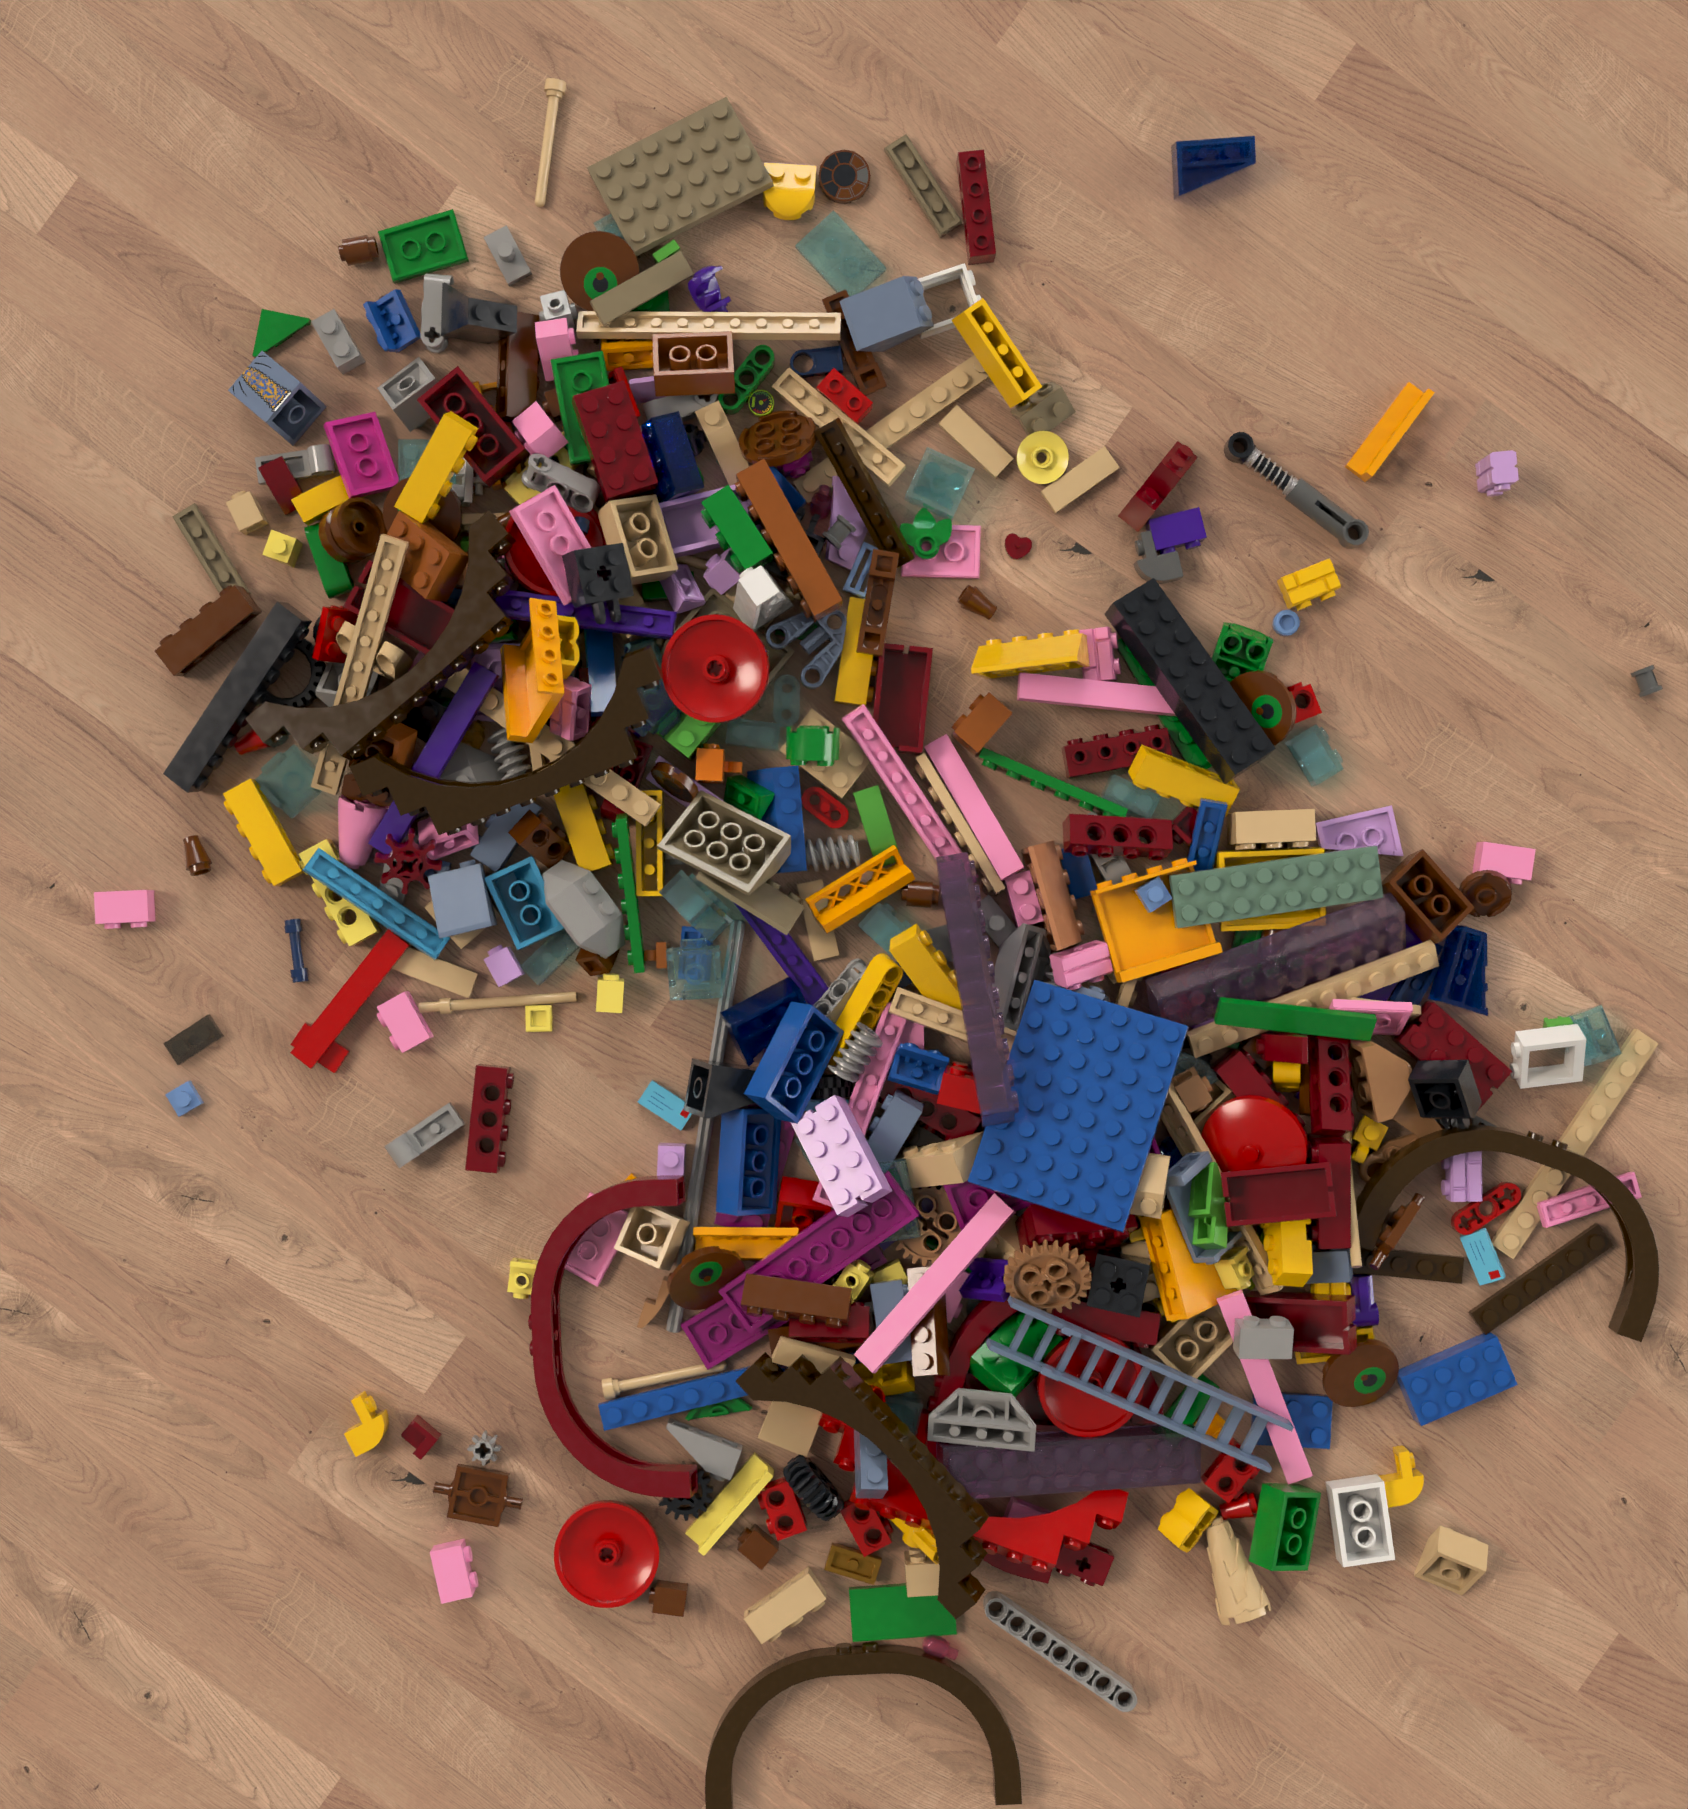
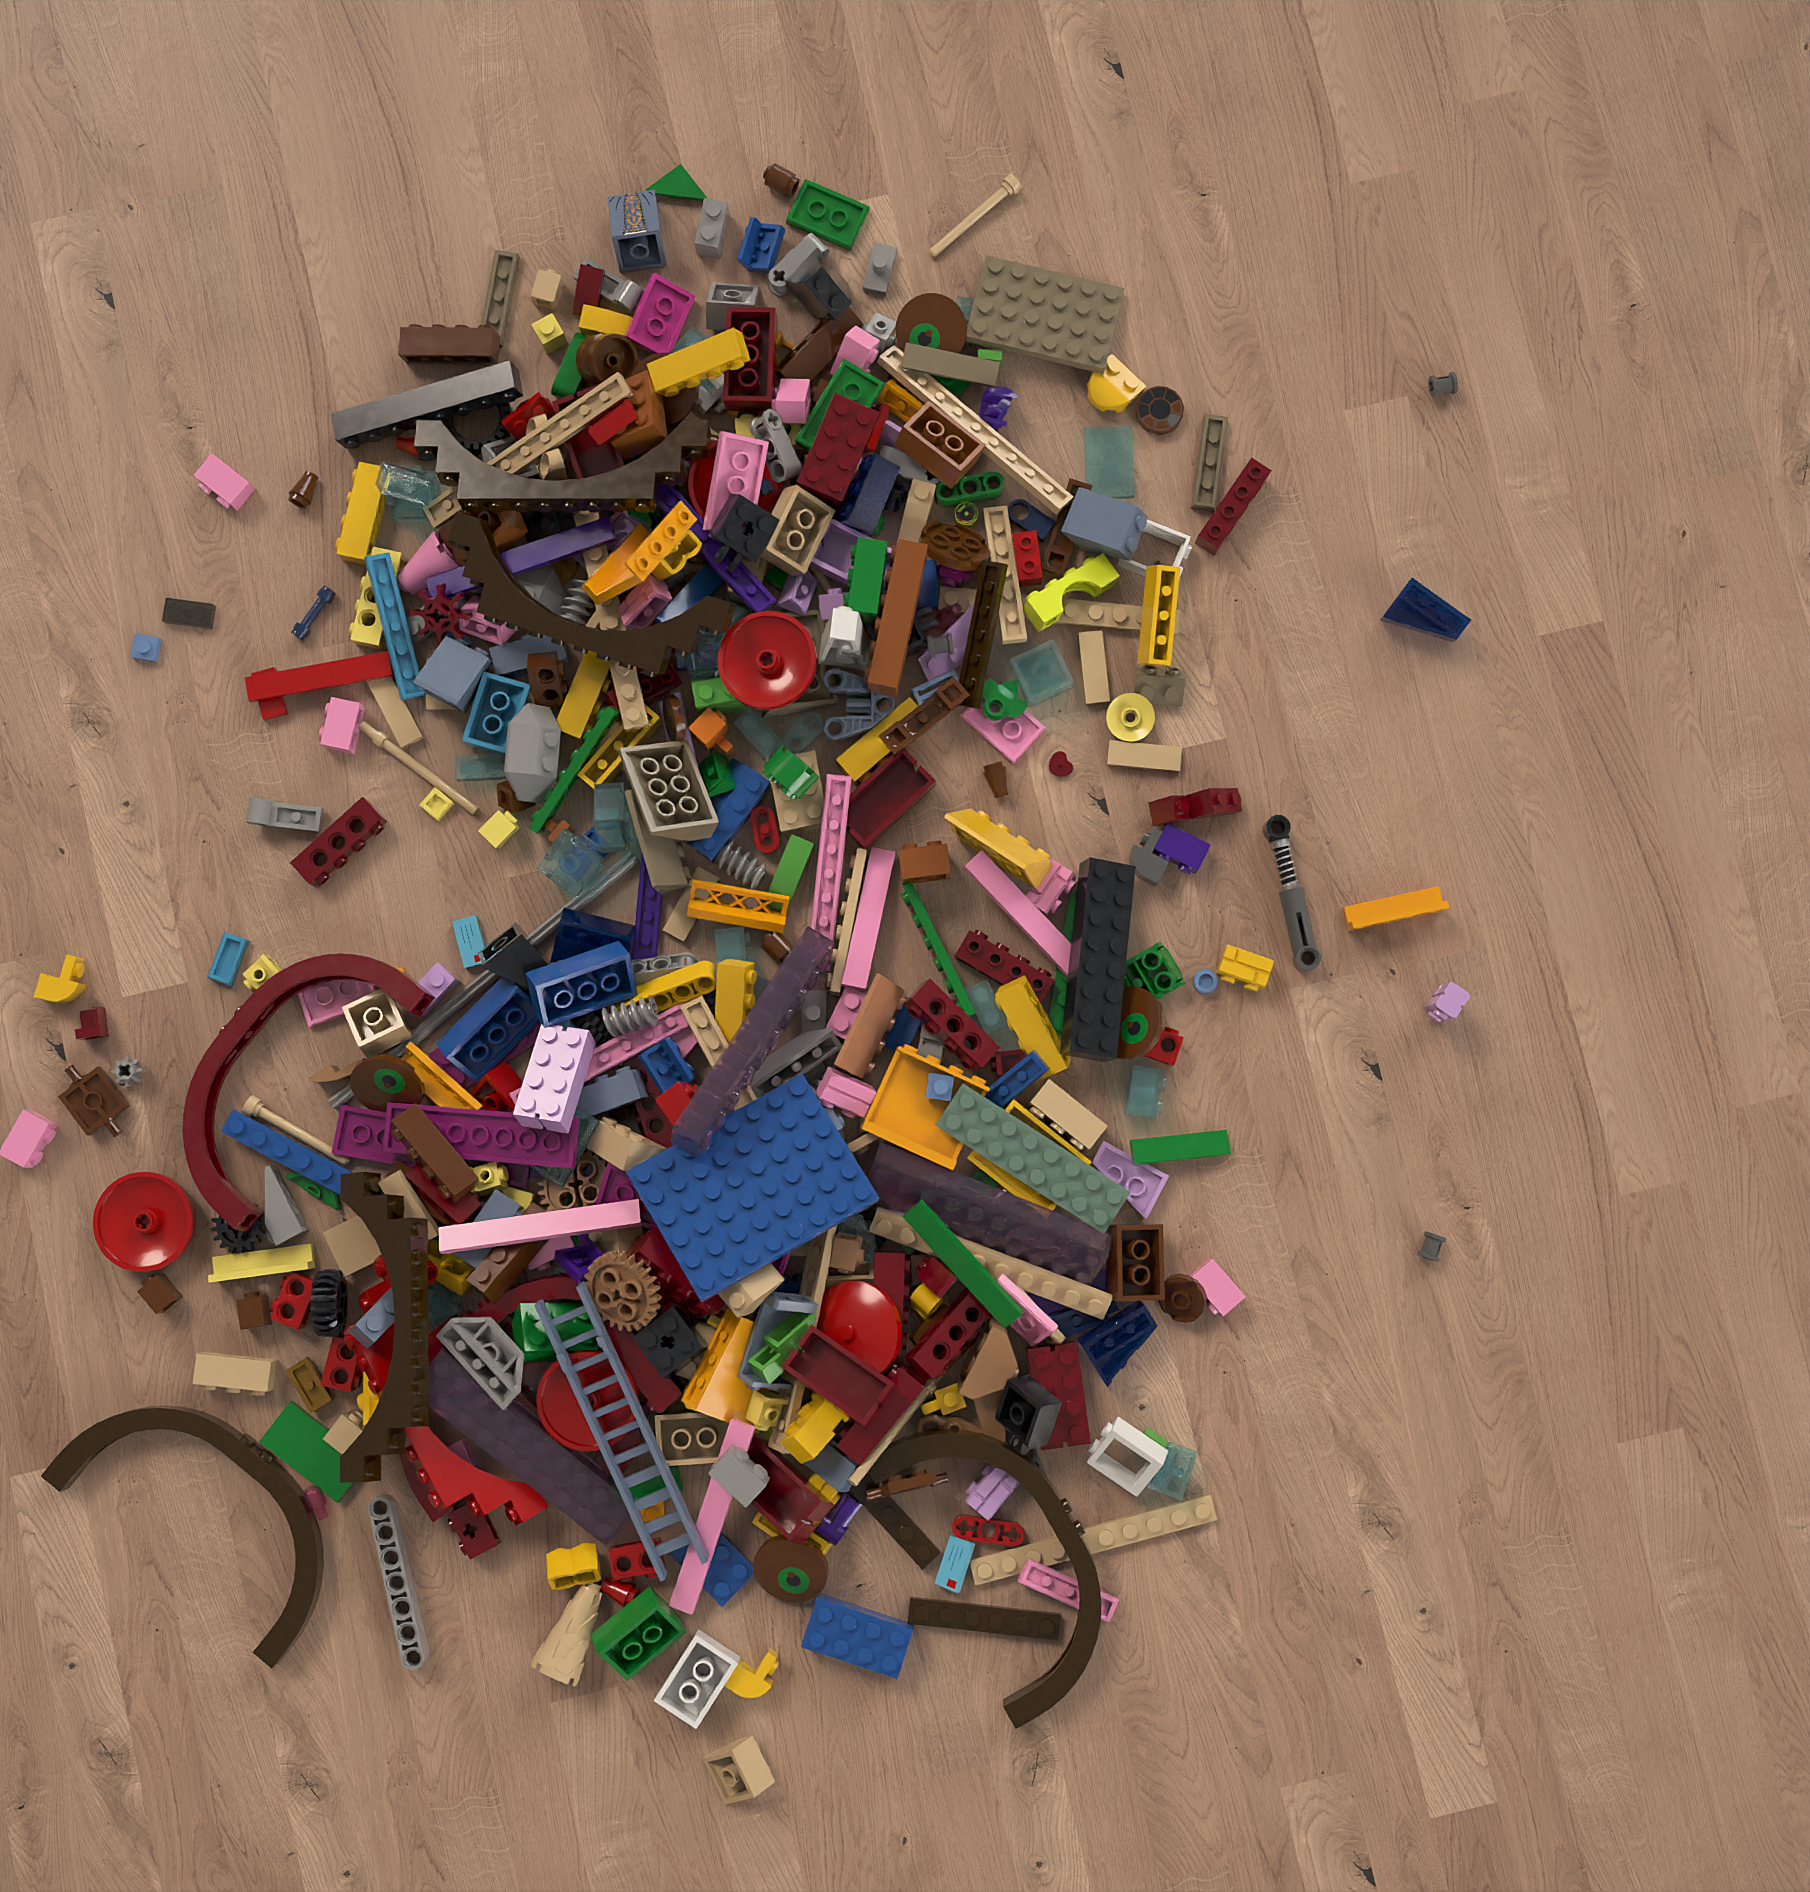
camera: 45 degrees right, 5 degrees down
(280, 779) = (405, 483): none -> clear light blue brick
(412, 579) = (612, 421): none -> red slope
(482, 1289) = (228, 959): none -> dark azure tile
(503, 965) = (444, 745): lavender brick -> none
(912, 368) = (1093, 577): none -> neon yellow arch
(1381, 775) = (1179, 1147): none -> green tile

